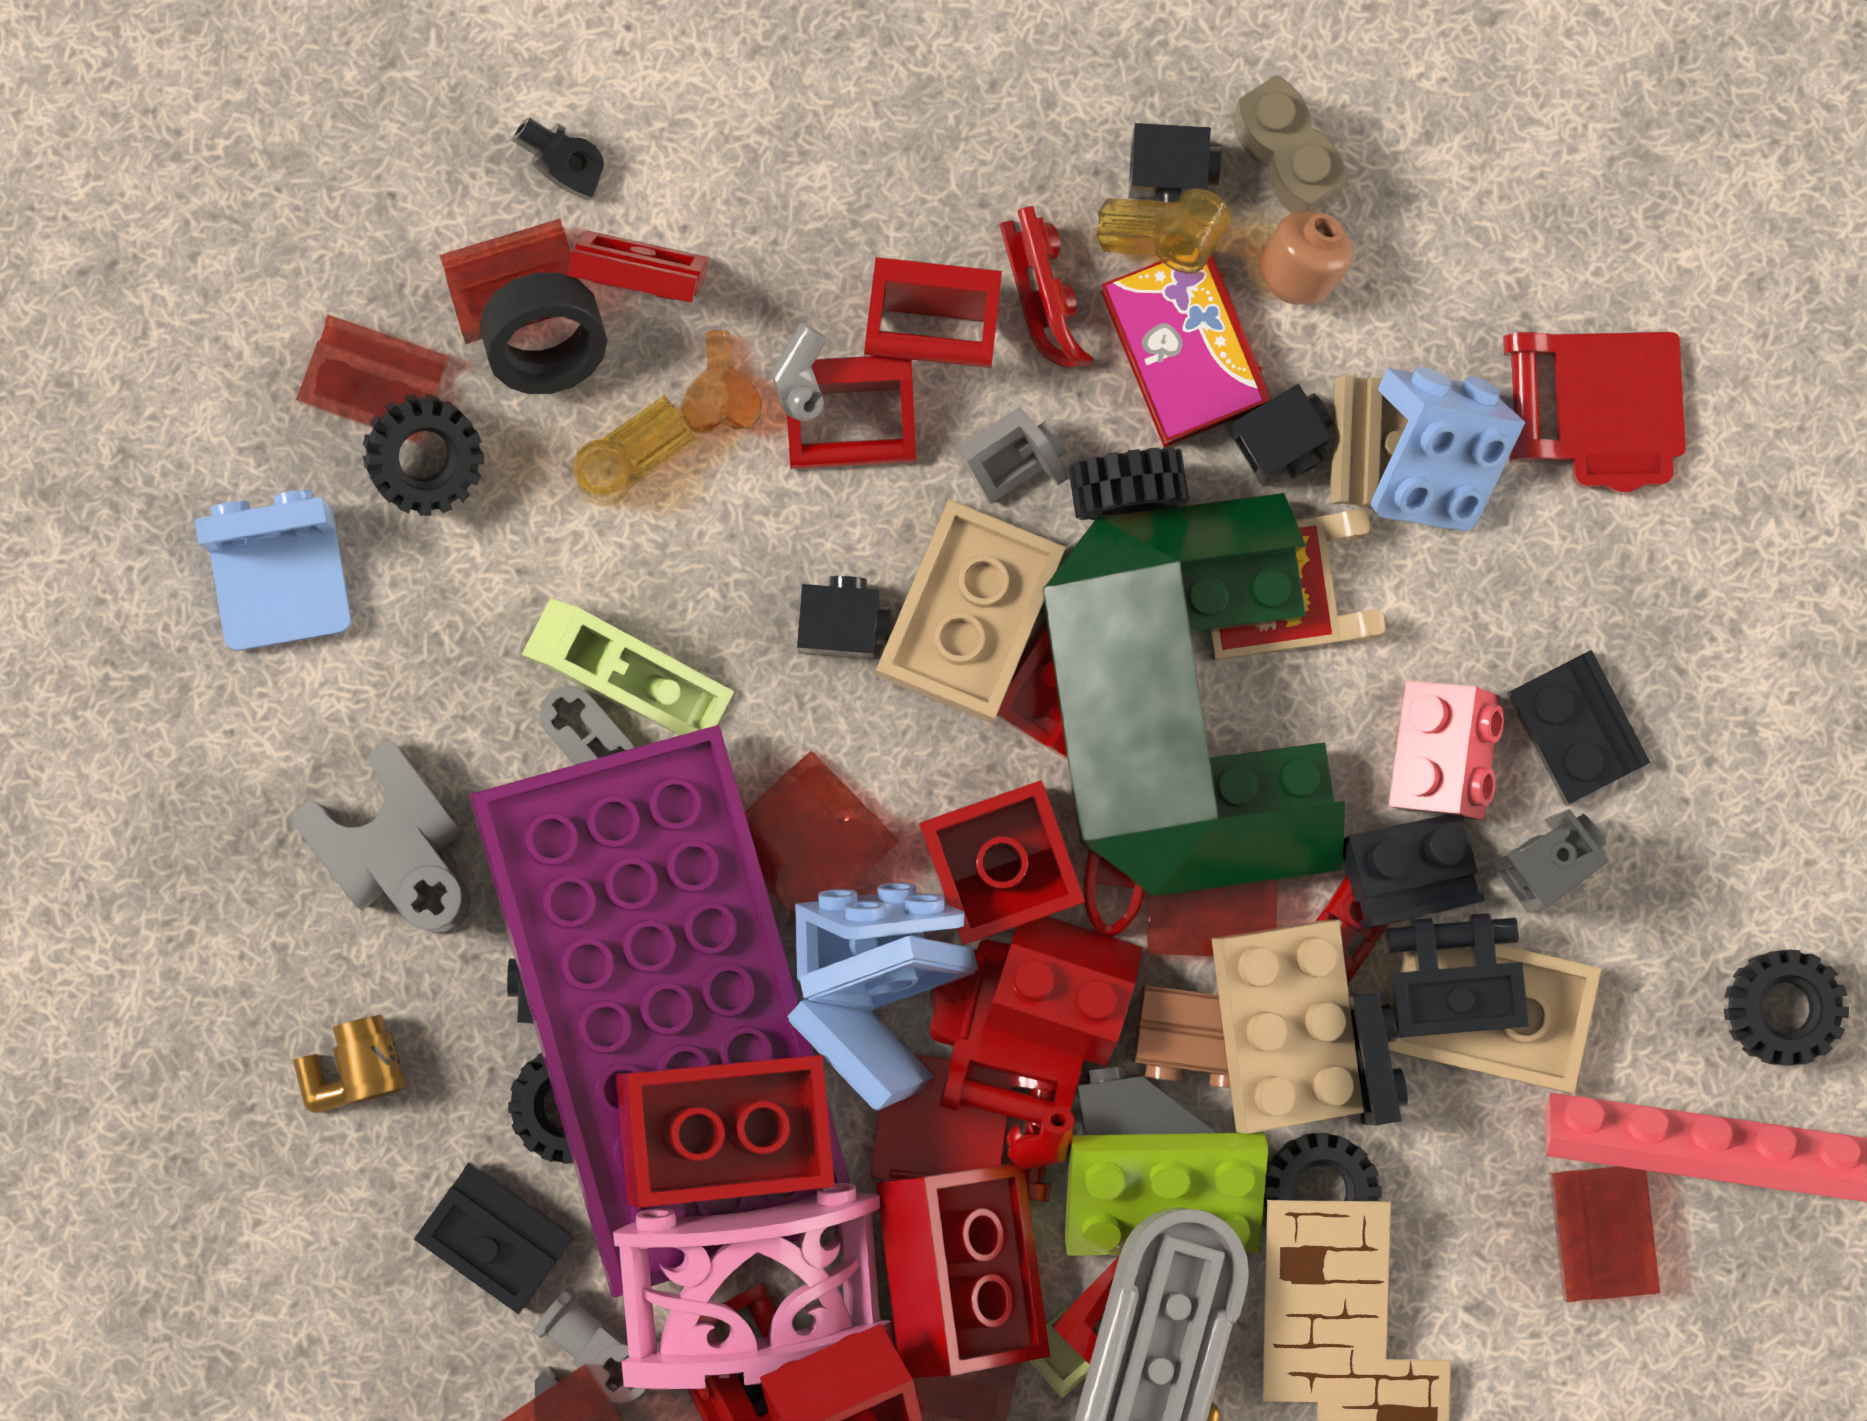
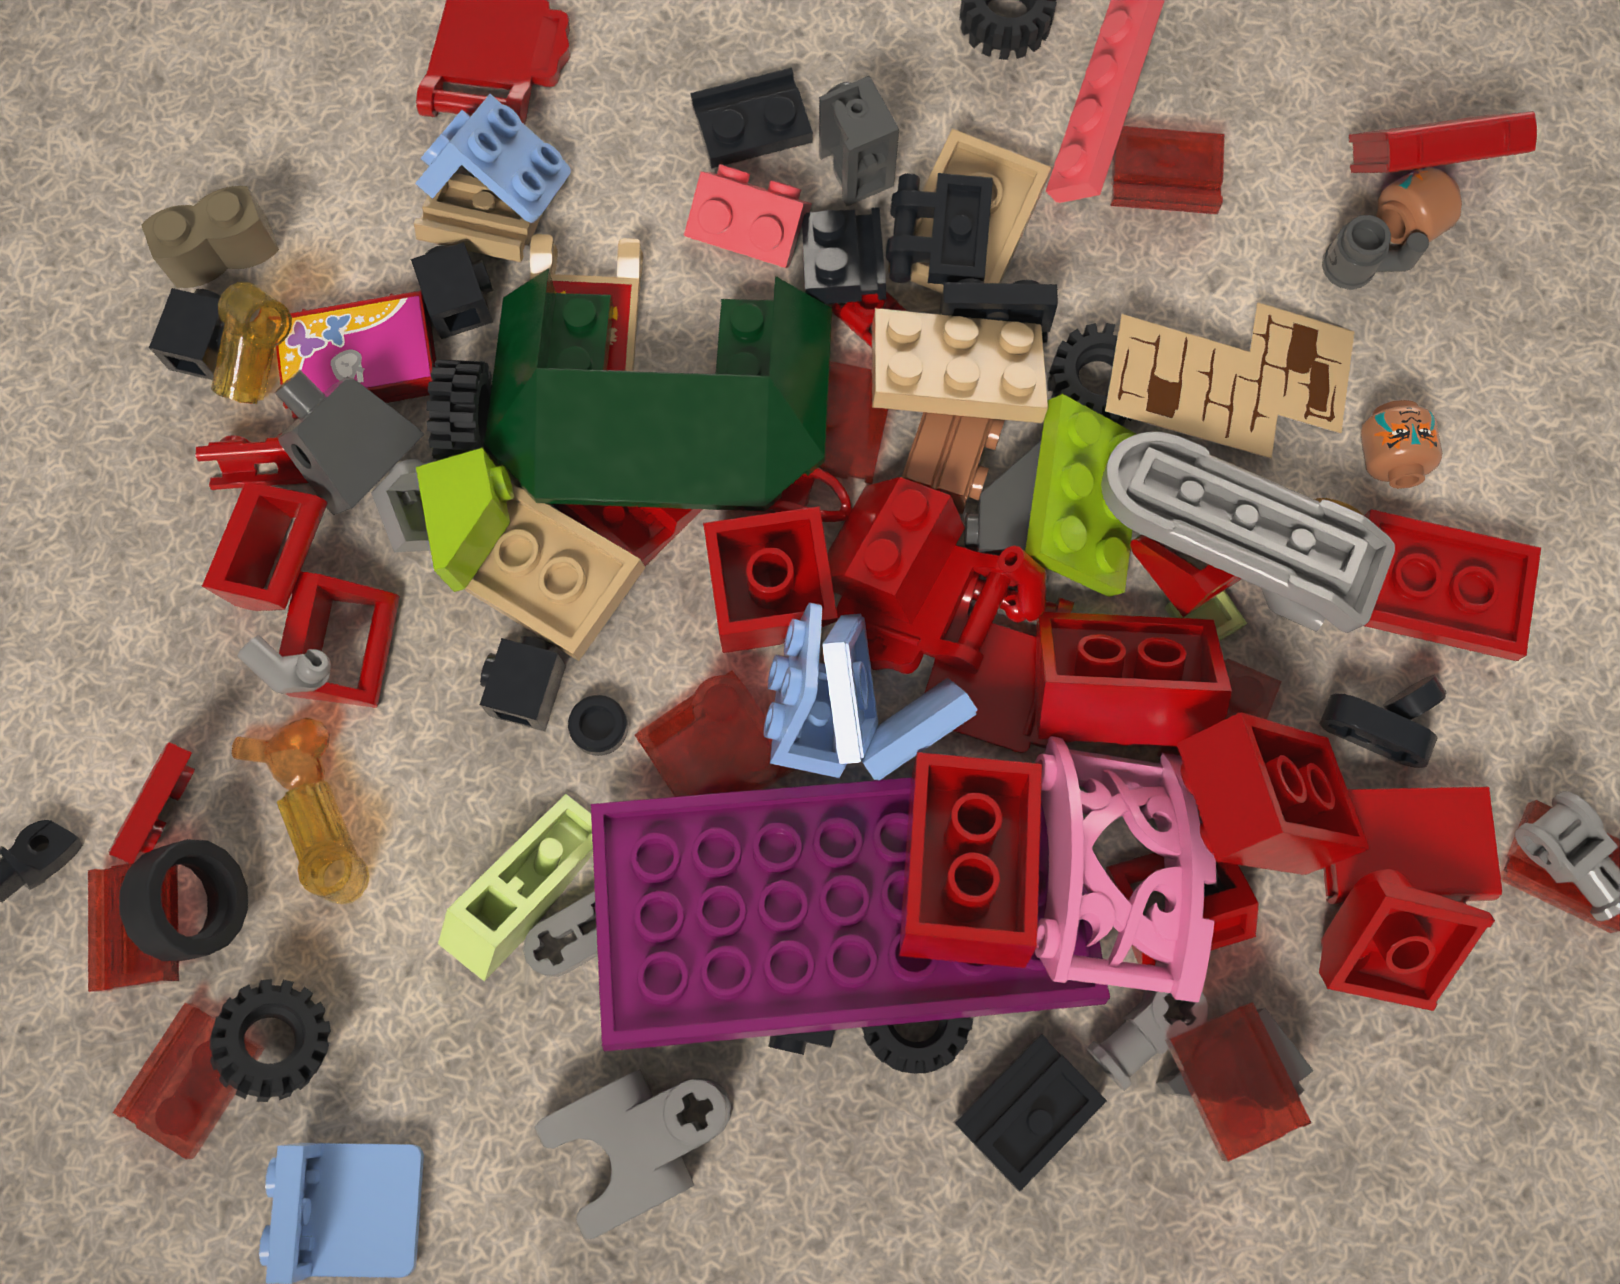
camera: 75 degrees left, 10 degrees down
(365, 1063) = (843, 1209): pearl gold piece -> none
(814, 709) = (598, 725): none -> black tile
(1009, 516) = (463, 512): none -> lime slope
(1067, 365) = (342, 438): none -> dark grey torso
(1306, 258) = (307, 239): nougat head -> none

